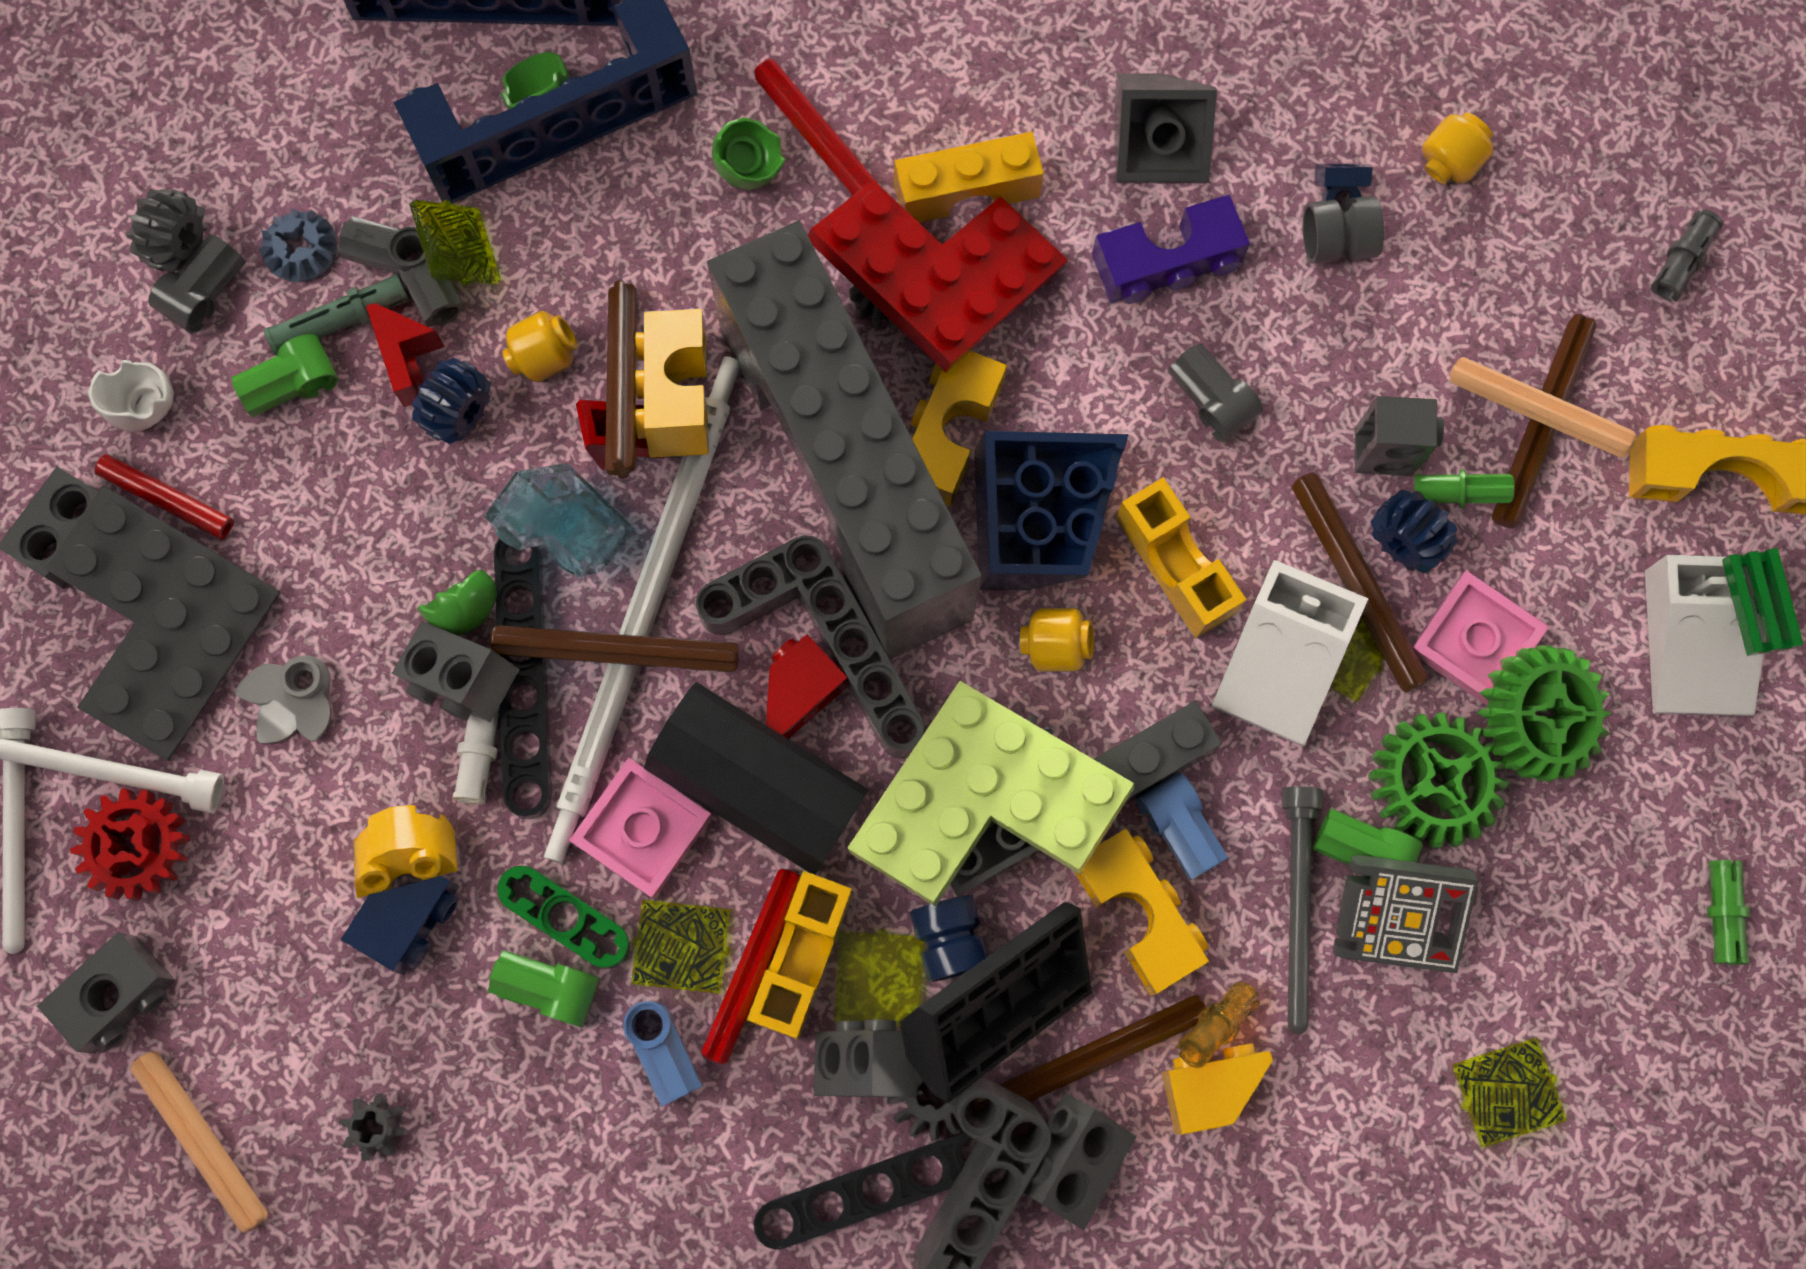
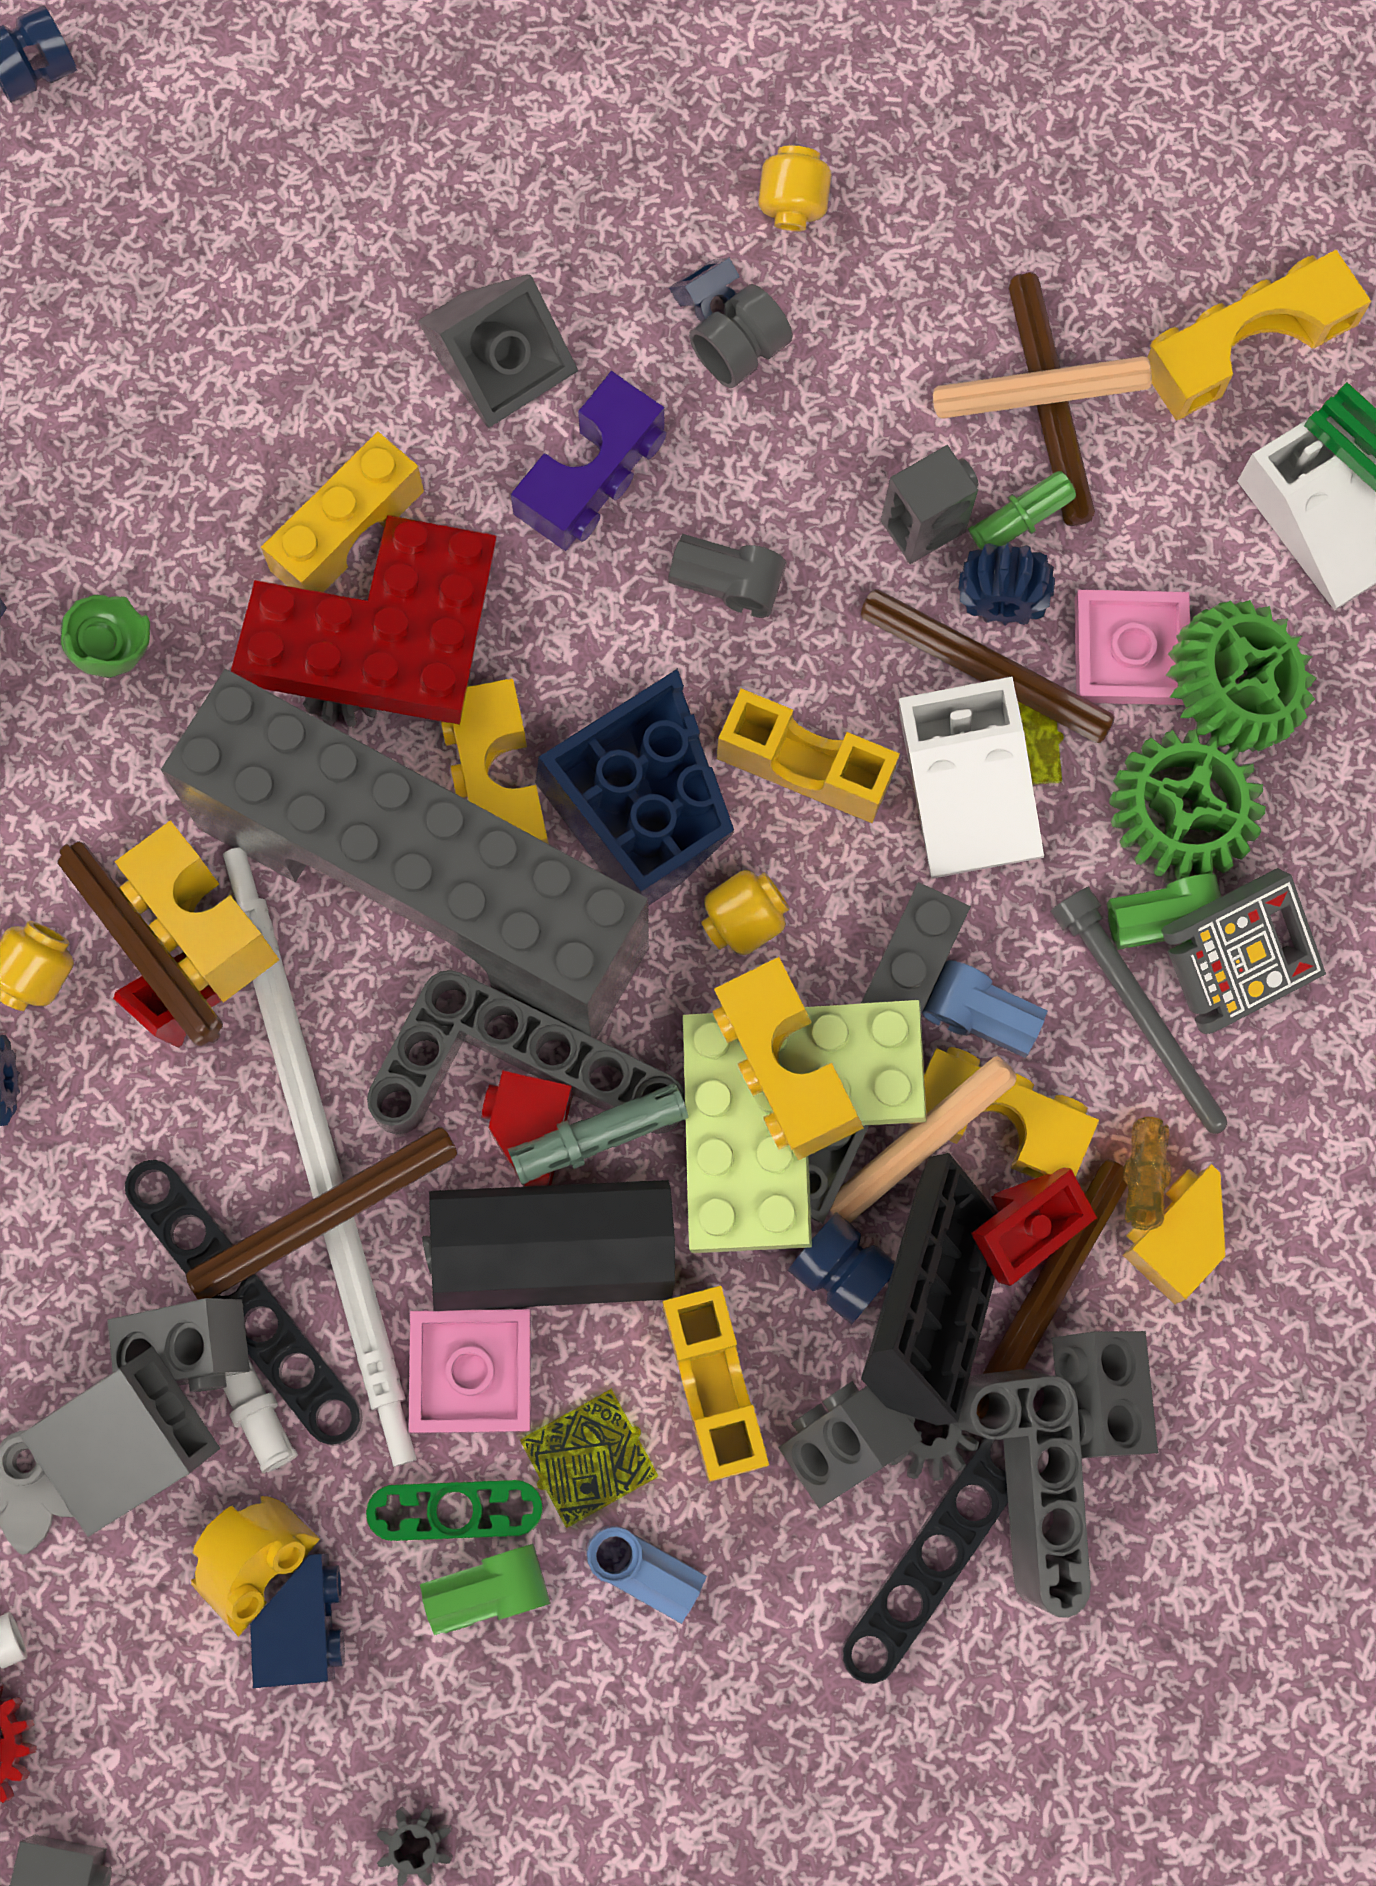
camera: 35 degrees left, 0 degrees up
(370, 708) = (120, 1442): none -> brick
(462, 605) = (135, 1278): bright green hair -> none
(564, 513) = (175, 1117): clear light blue brick -> none
(751, 968) = (672, 1428): red axle -> none
(812, 126) = (151, 566): red axle -> none
(840, 722) = (598, 1133): none -> sand green pin
(878, 976) = (799, 1354): clear neon green piece -> none
(1011, 715) = (808, 1107): none -> yellow arch
(1071, 886) = (924, 1138): none -> light nougat axle
(1107, 1001) = (1032, 1223): none -> red slope
(1687, 255) = (1074, 155): dark grey pin -> none

